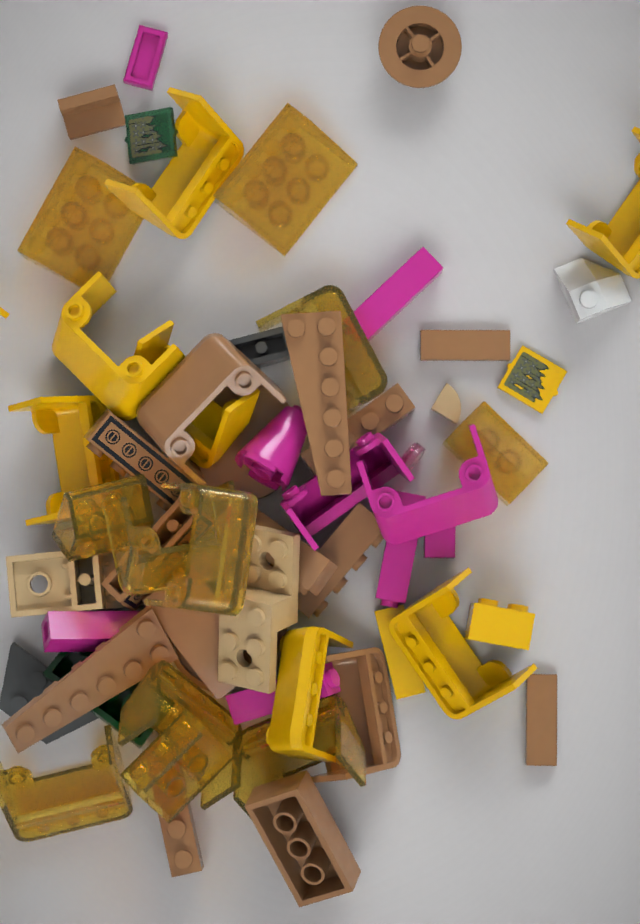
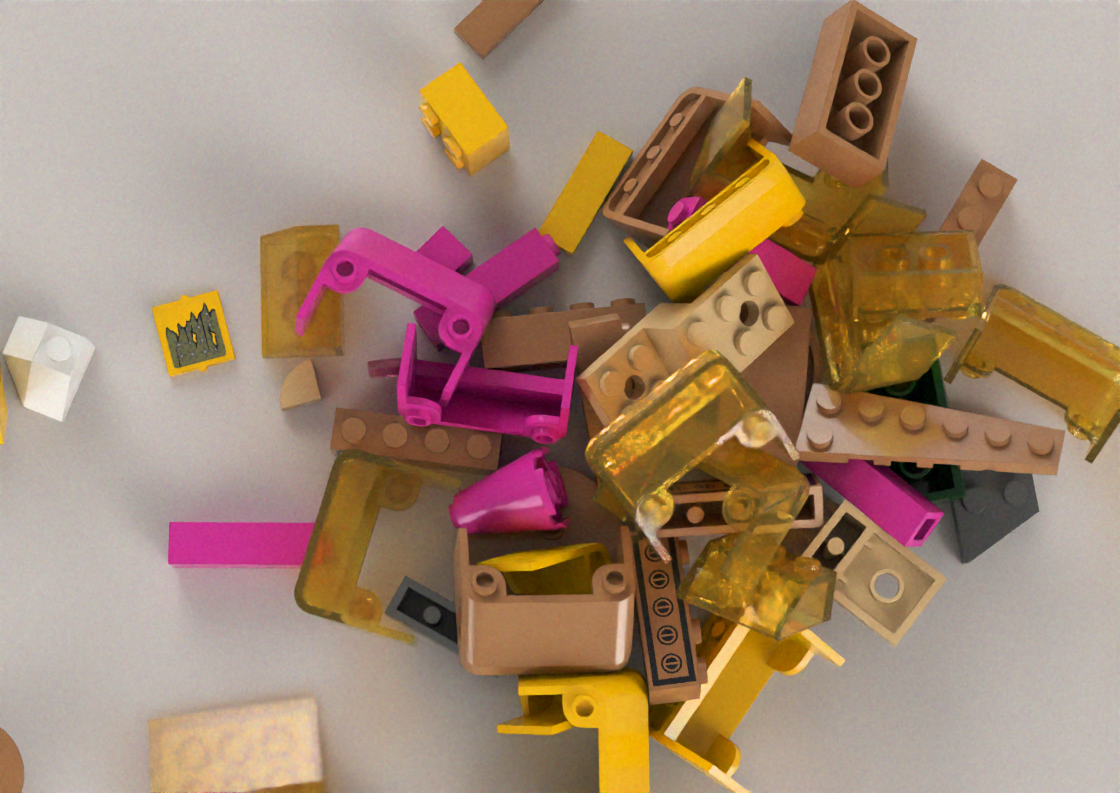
camera: 140 degrees left, 5 degrees down
(319, 375) = (400, 524): medium nougat wing -> none
(444, 656) = (548, 137): yellow windscreen -> none
(465, 345) = (225, 429): medium nougat tile -> none

